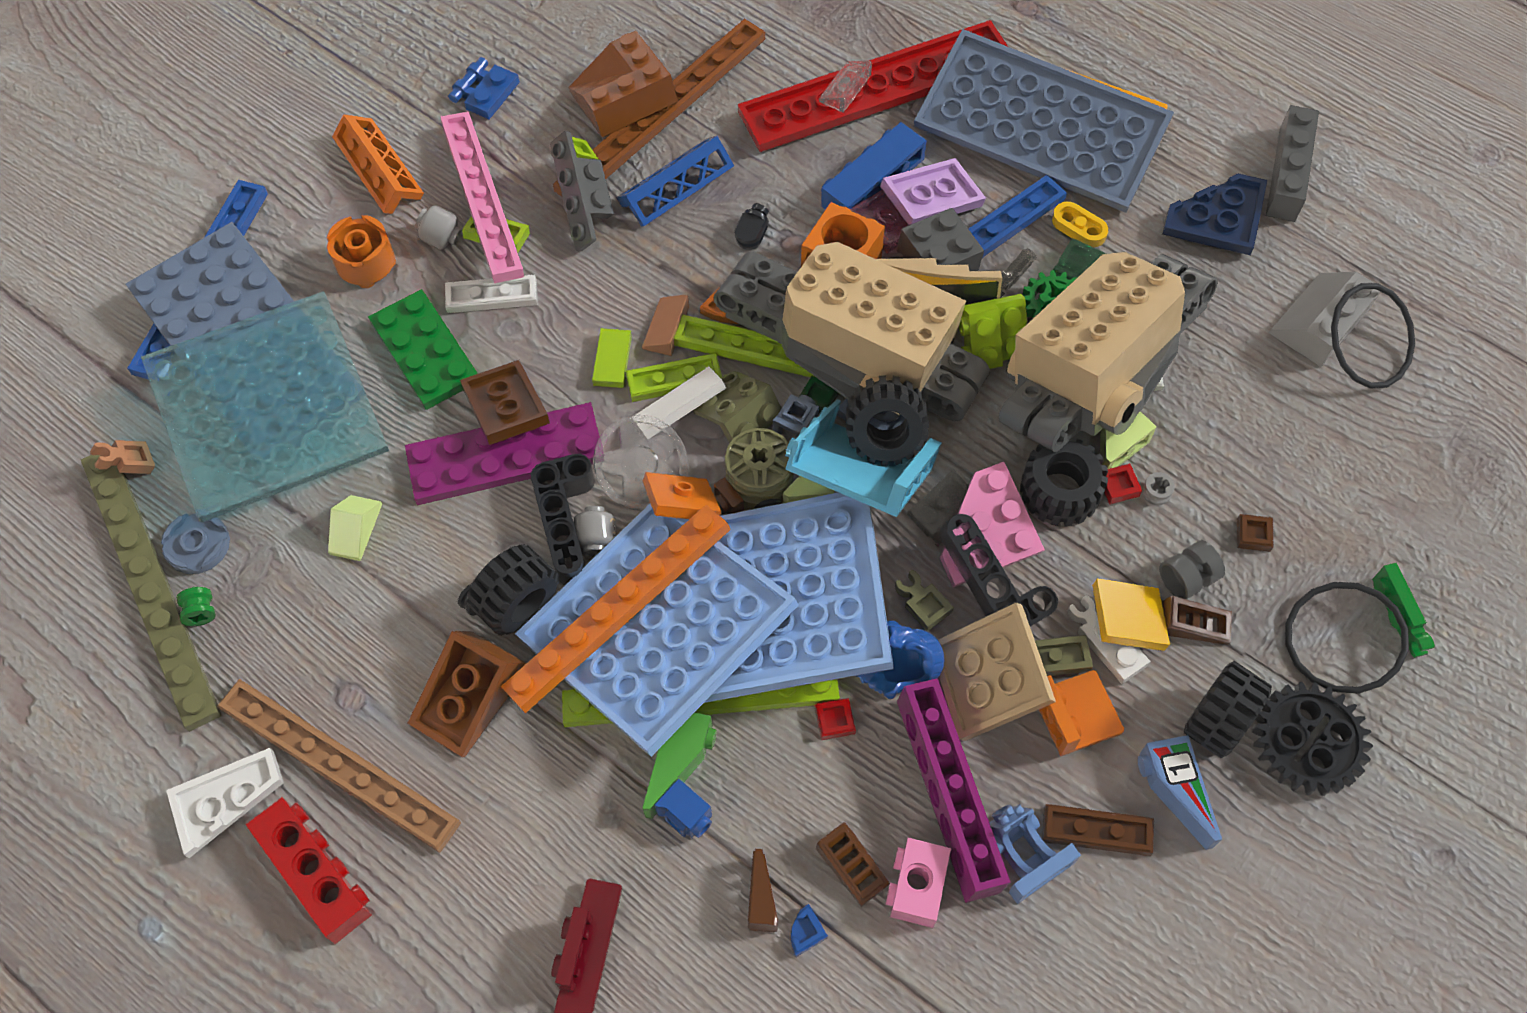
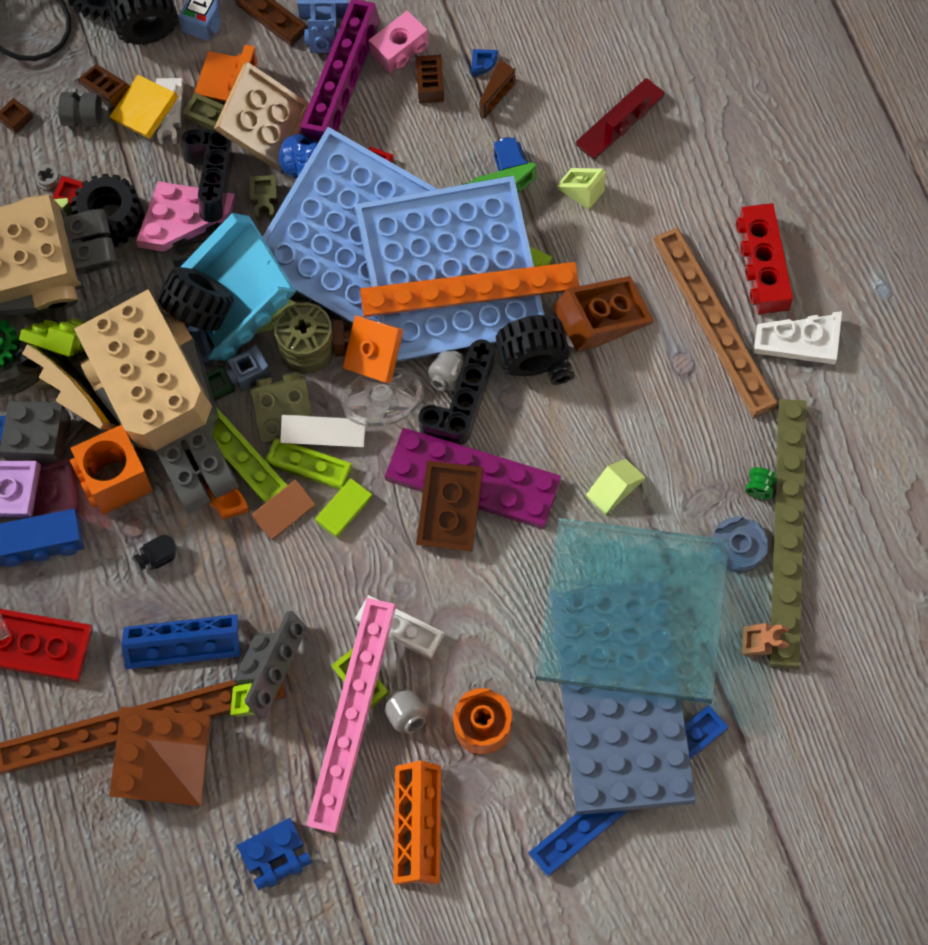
camera: 145 degrees left, 5 degrees up
(423, 348) = (482, 608): green plate -> none
(579, 831) = (583, 185): none -> yellowish green slope

